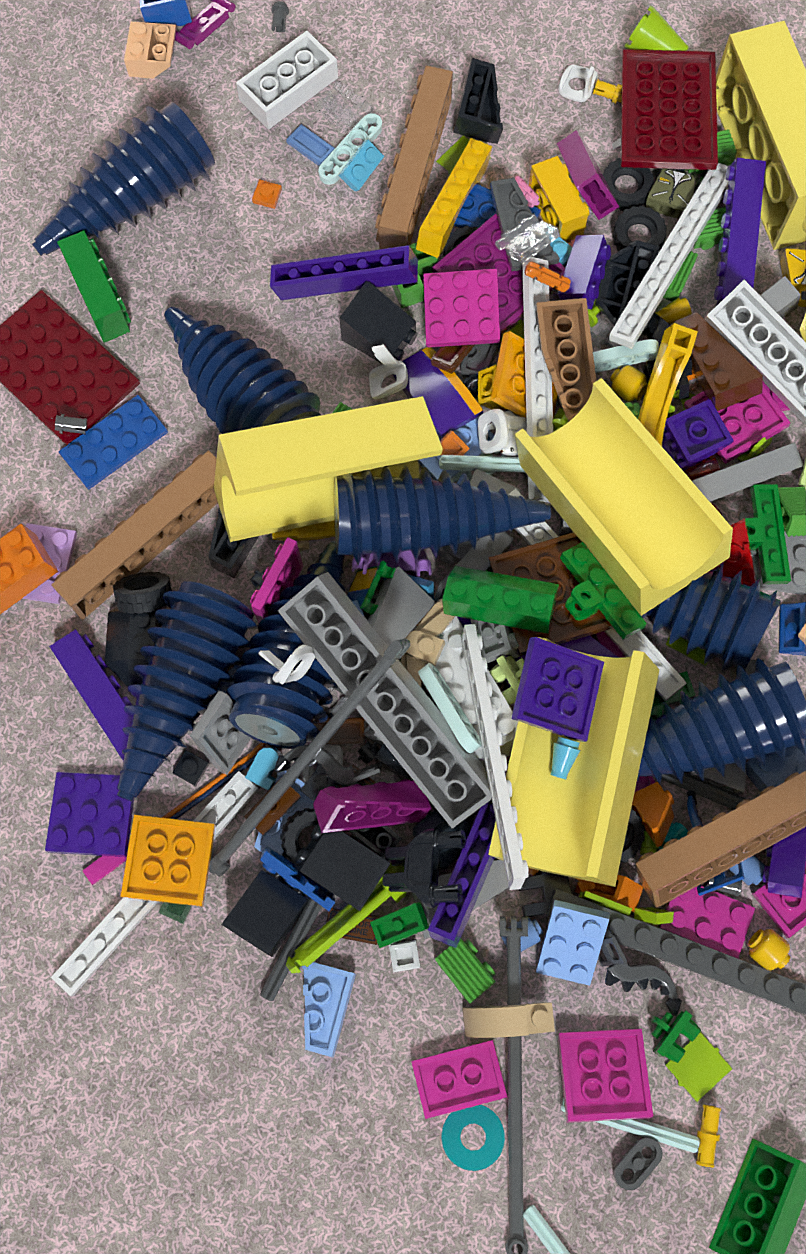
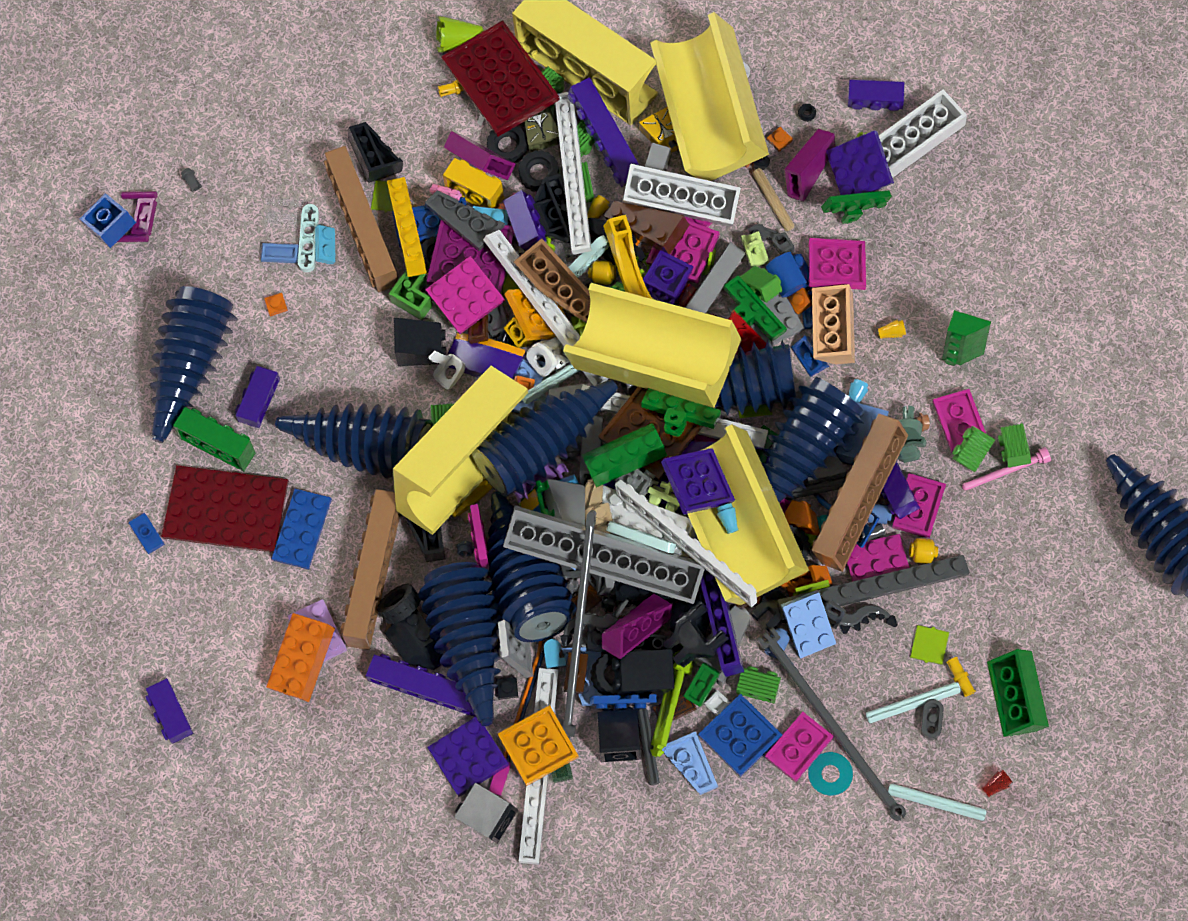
camera: 30 degrees left, 5 degrees down
(55, 896) = (485, 812): none -> slope
(70, 424) = (269, 535): dark grey pin -> none
(149, 49) = (123, 258): light nougat slope -> none
(174, 274) = (257, 396): none -> dark purple brick
(285, 669) = (538, 572): white piece -> none
(287, 79) = (233, 219): white brick -> none
(344, 273) = (373, 323): dark purple brick -> none
(402, 1014) = (740, 735): none -> blue plate
(508, 1020) = (802, 692): tan arch -> none
(534, 238) = (481, 226): clear plate -> none
(547, 276) = (507, 240): orange axle -> none
(574, 71) = (429, 86): white piece -> none
(604, 1075) = (879, 684): dark pink plate -> none
(653, 915) = (844, 577): lime tile -> none
(681, 1025) = (904, 626): green hips -> none

